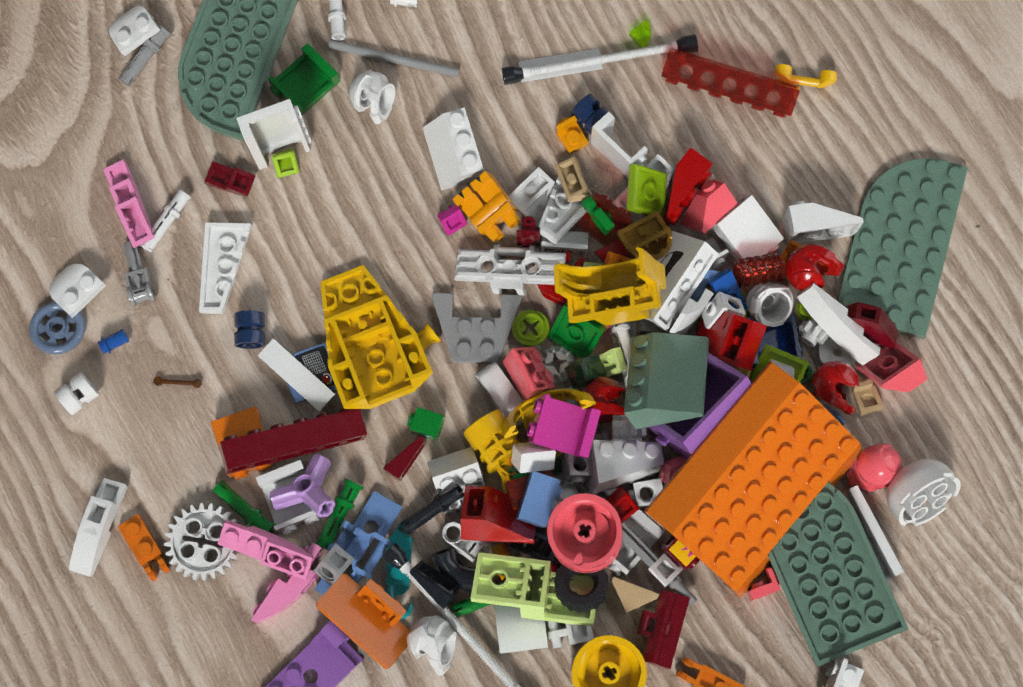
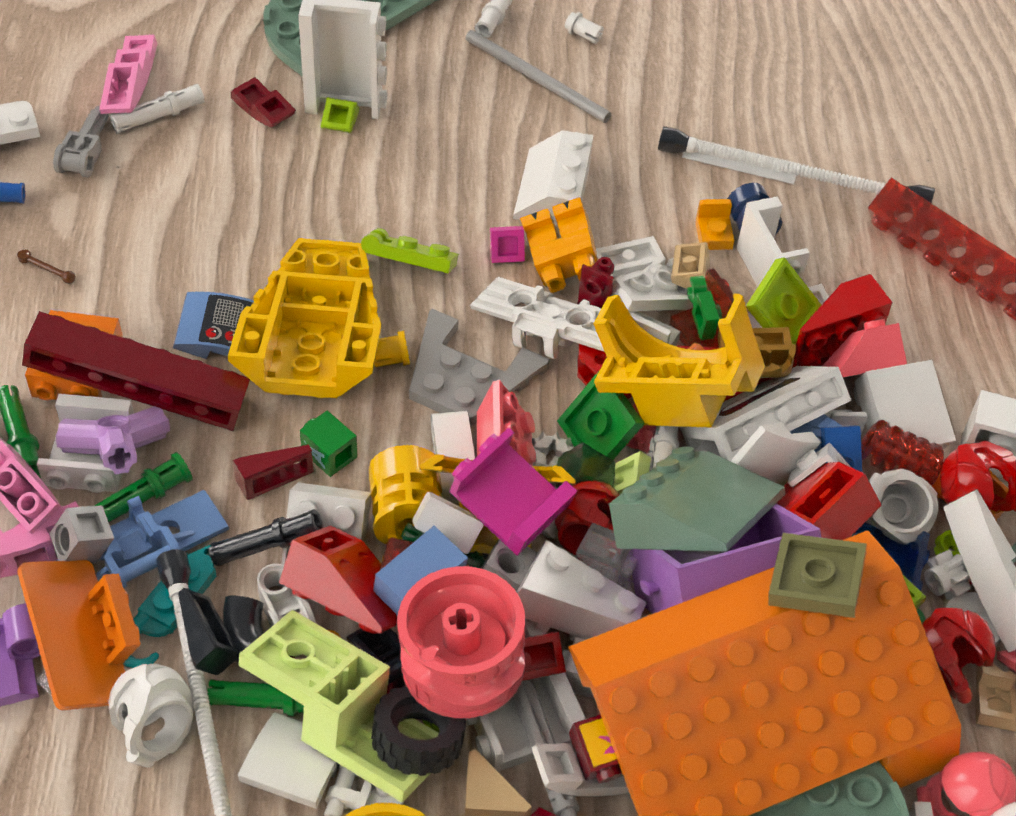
camera: 20 degrees right, 25 degrees down
(221, 259) = (189, 172): white wing -> none
(249, 329) = (173, 244): dark blue wheel -> none
(296, 374) = (196, 314): white sticker -> none
(305, 80) = (422, 53): green panel -> none
(375, 91) = (488, 88): white helmet -> none
(394, 257) = (408, 251): none -> lime plate
(530, 317) = (548, 392): lime gear -> none
(641, 34) = (863, 167): clear neon green tile -> none
(760, 412) = (817, 575): none -> olive plate

